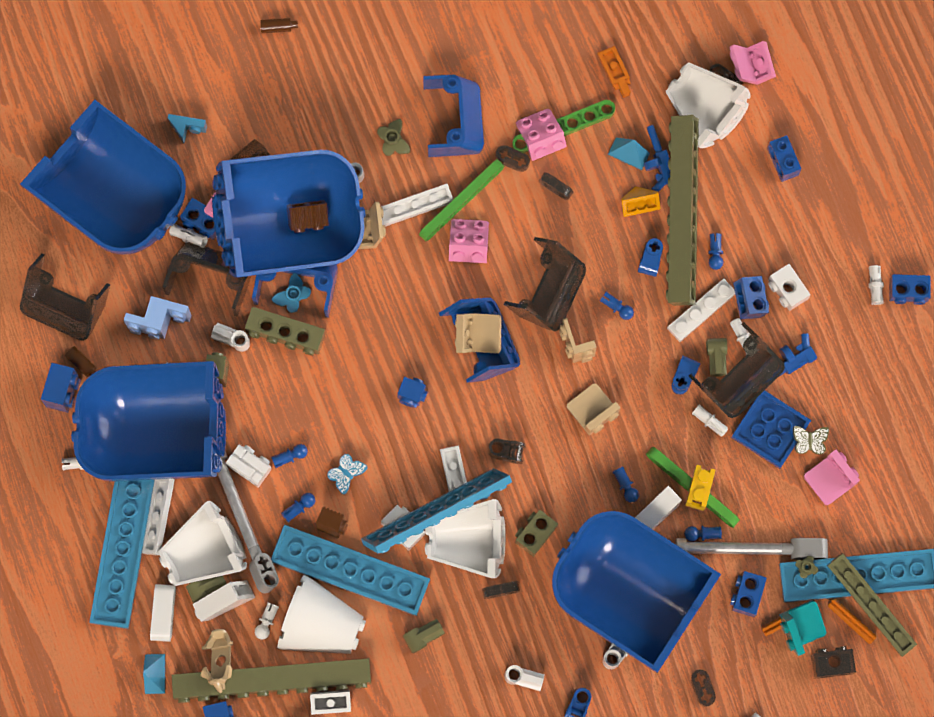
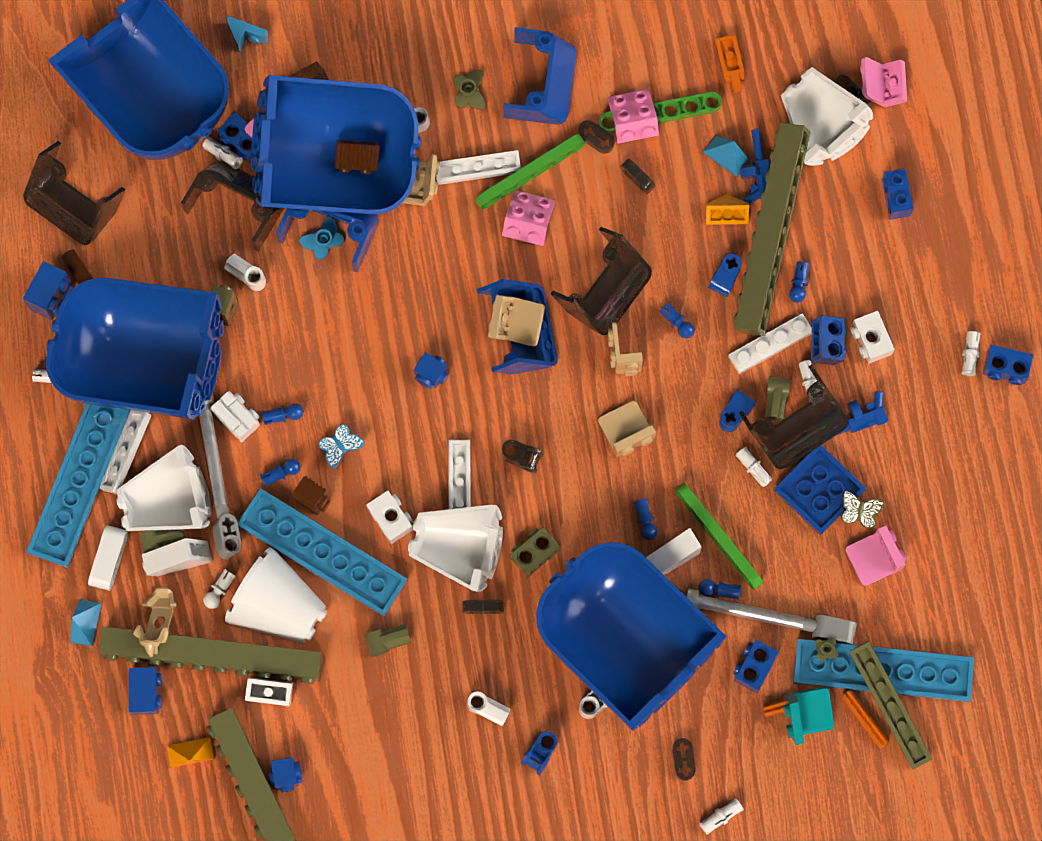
camera: 15 degrees right, 0 degrees up
(157, 318) = (169, 236): light blue bracket -> none
(259, 317) = (280, 257): olive brick -> none
(436, 510) = (424, 506): dark azure plate -> none
(700, 488) = (725, 537): yellow brick -> none
(822, 668) = (821, 766): clear smoke brick -> none

